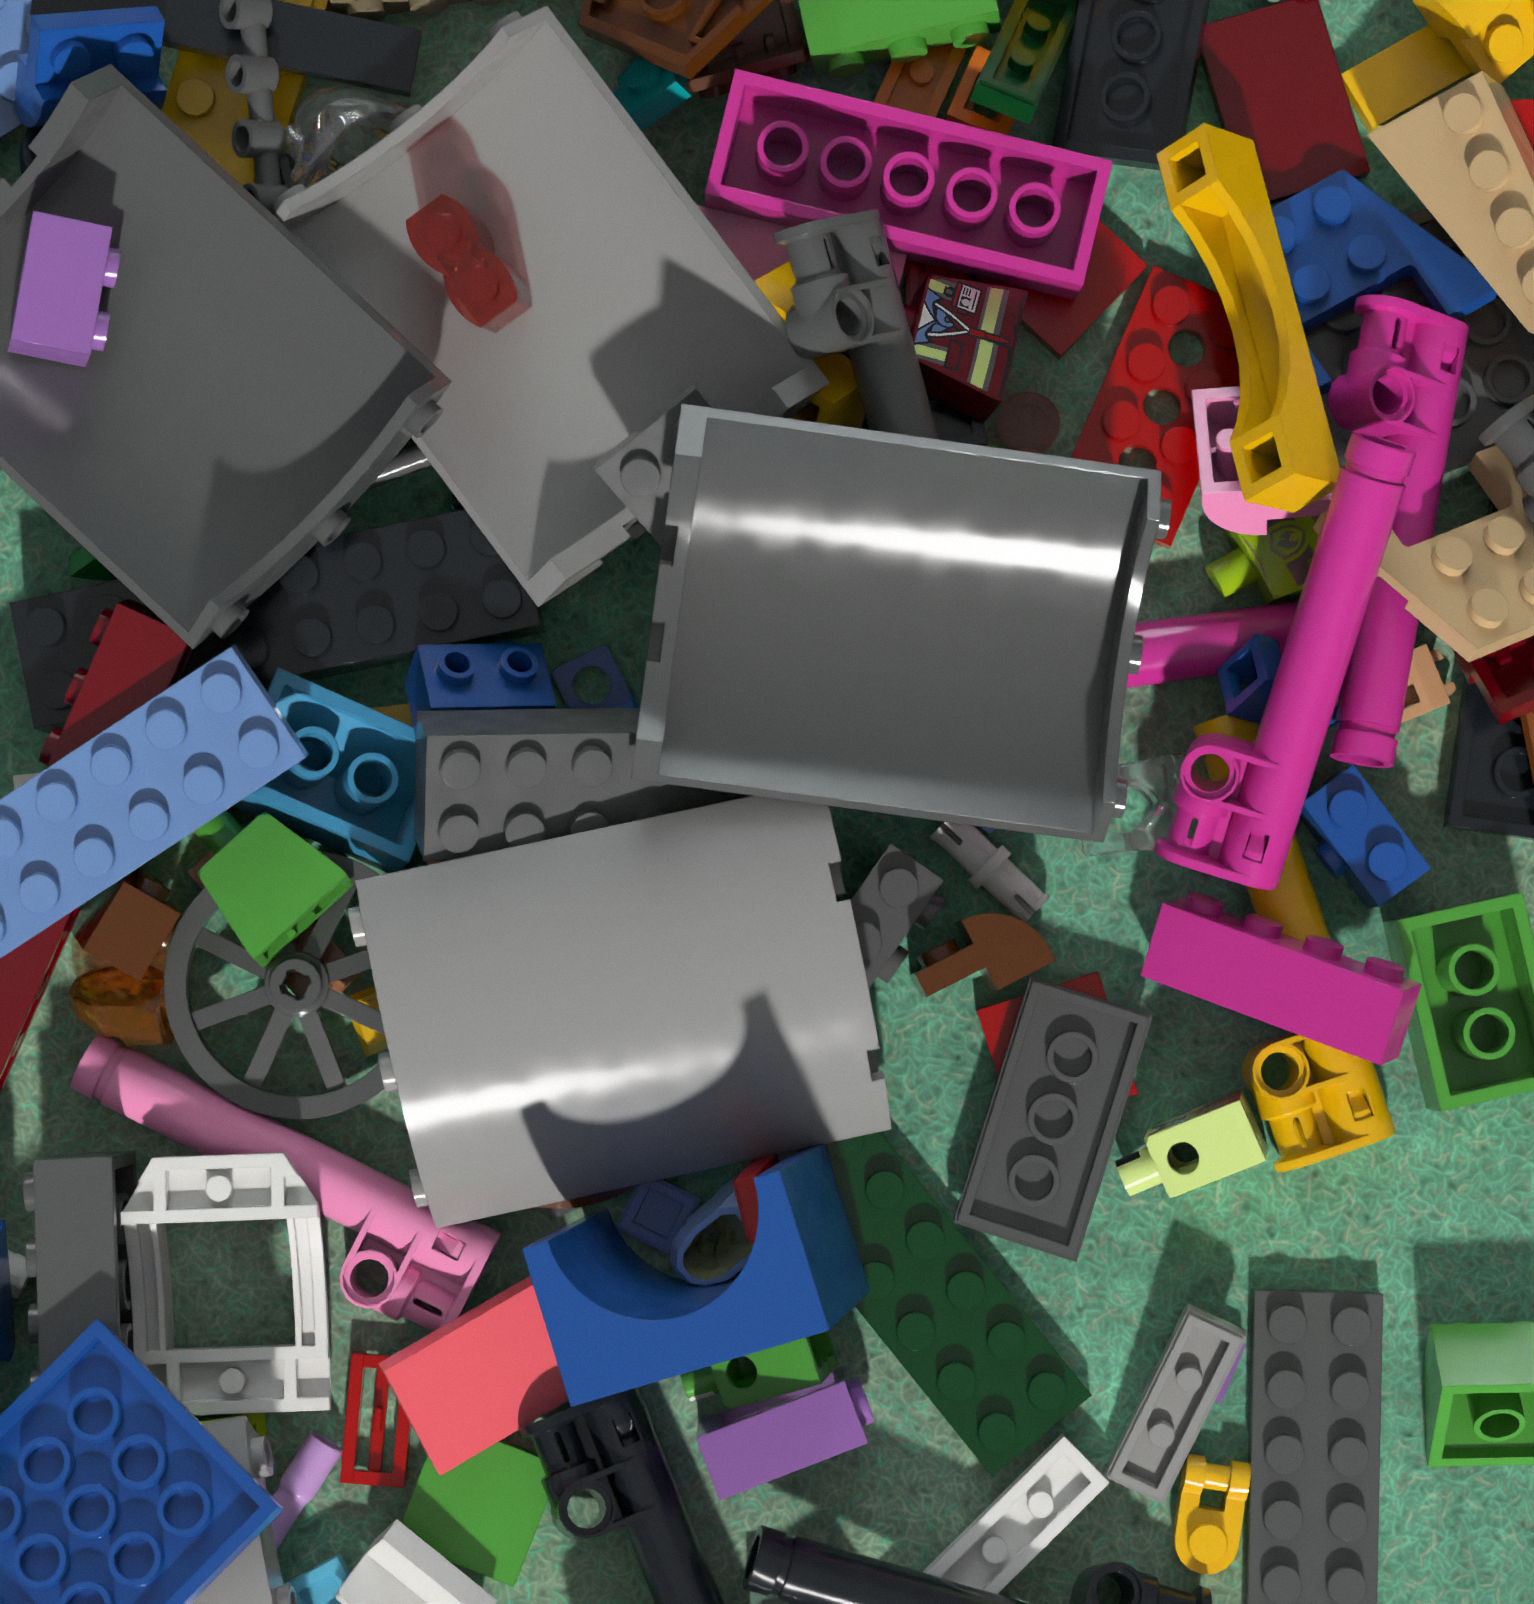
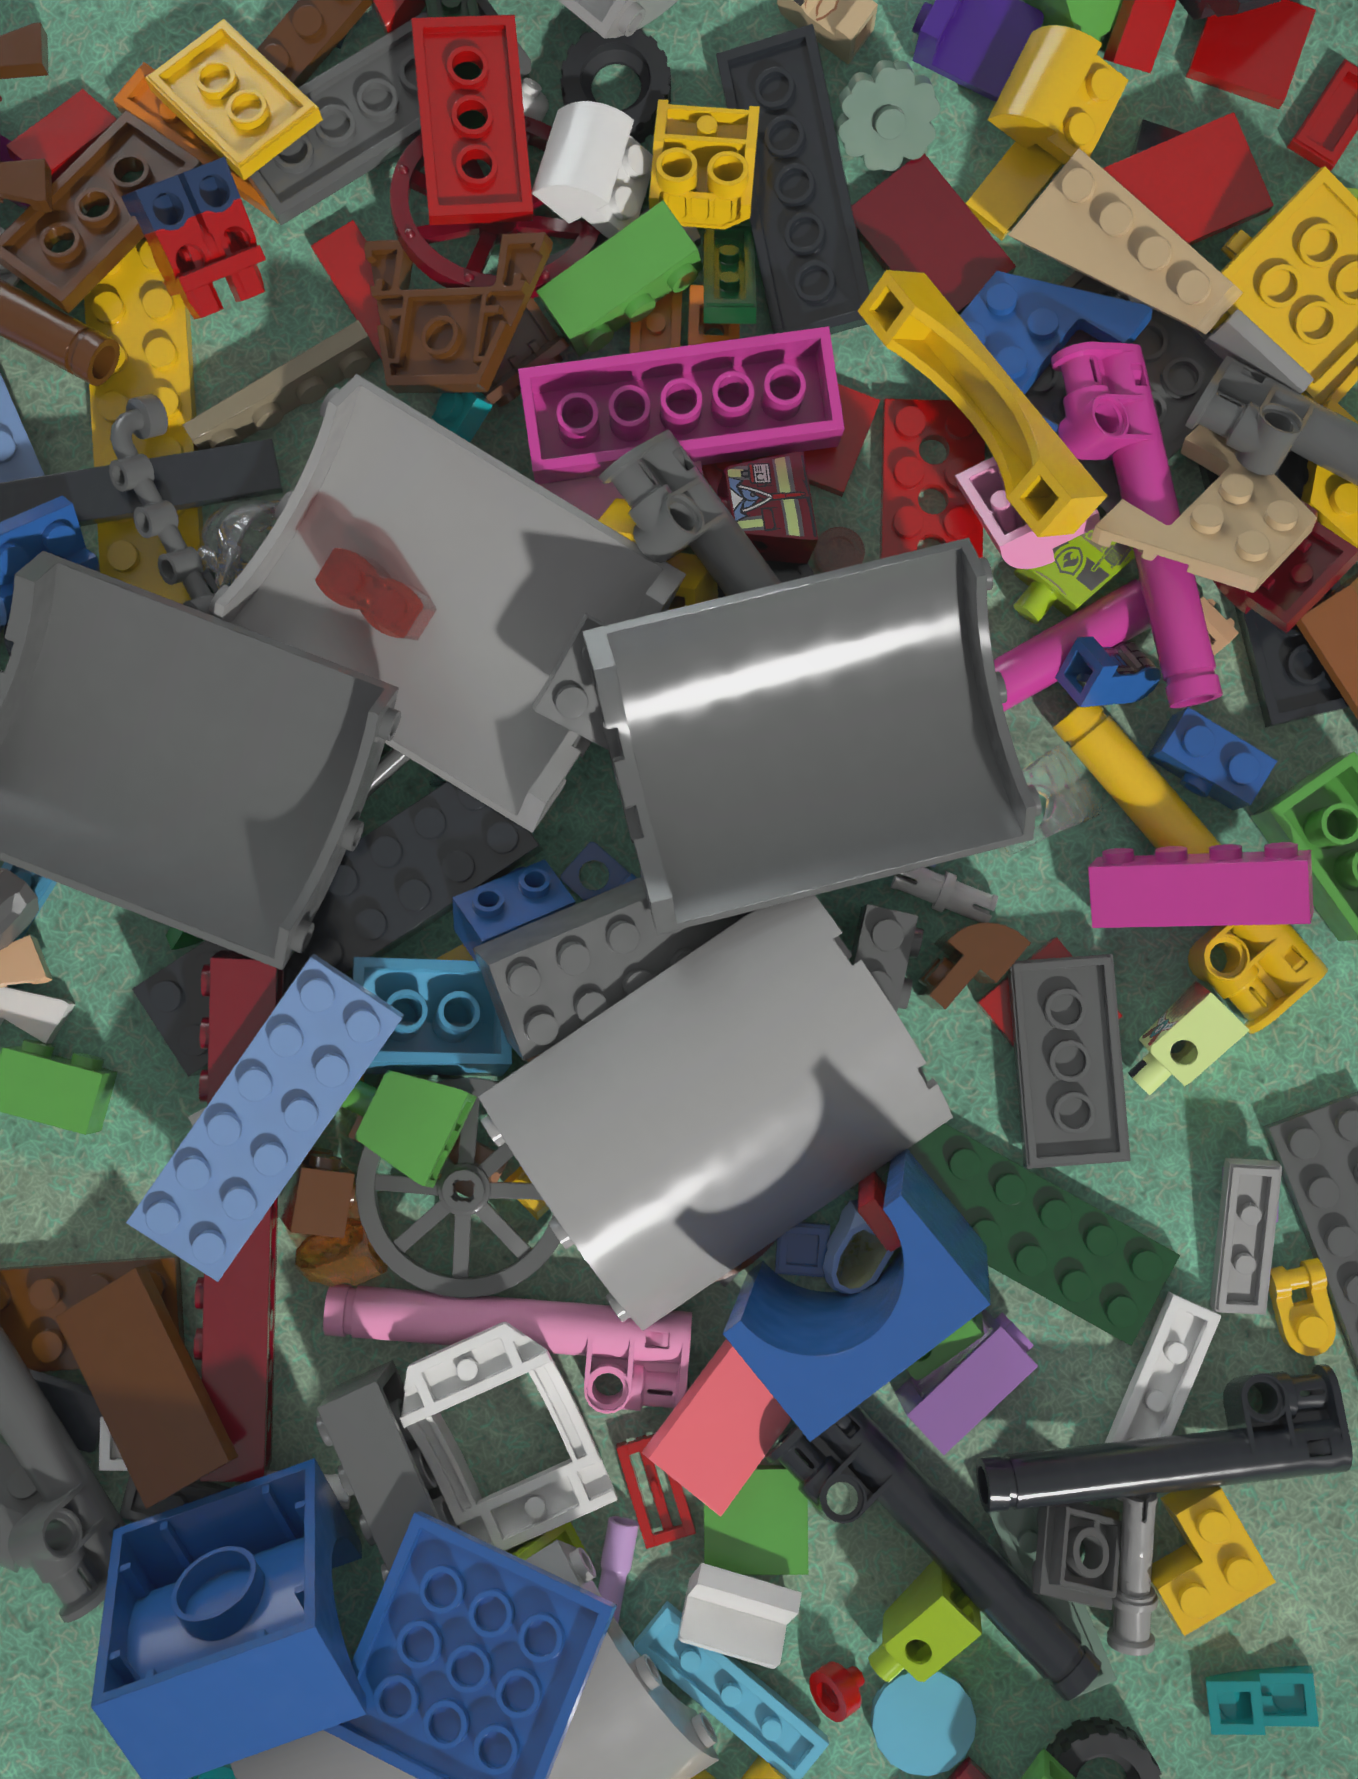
camera: 20 degrees left, 0 degrees up
(62, 290) = (73, 737): medium lavender brick -> none
(1254, 810) = (1131, 769): dark pink piece -> none

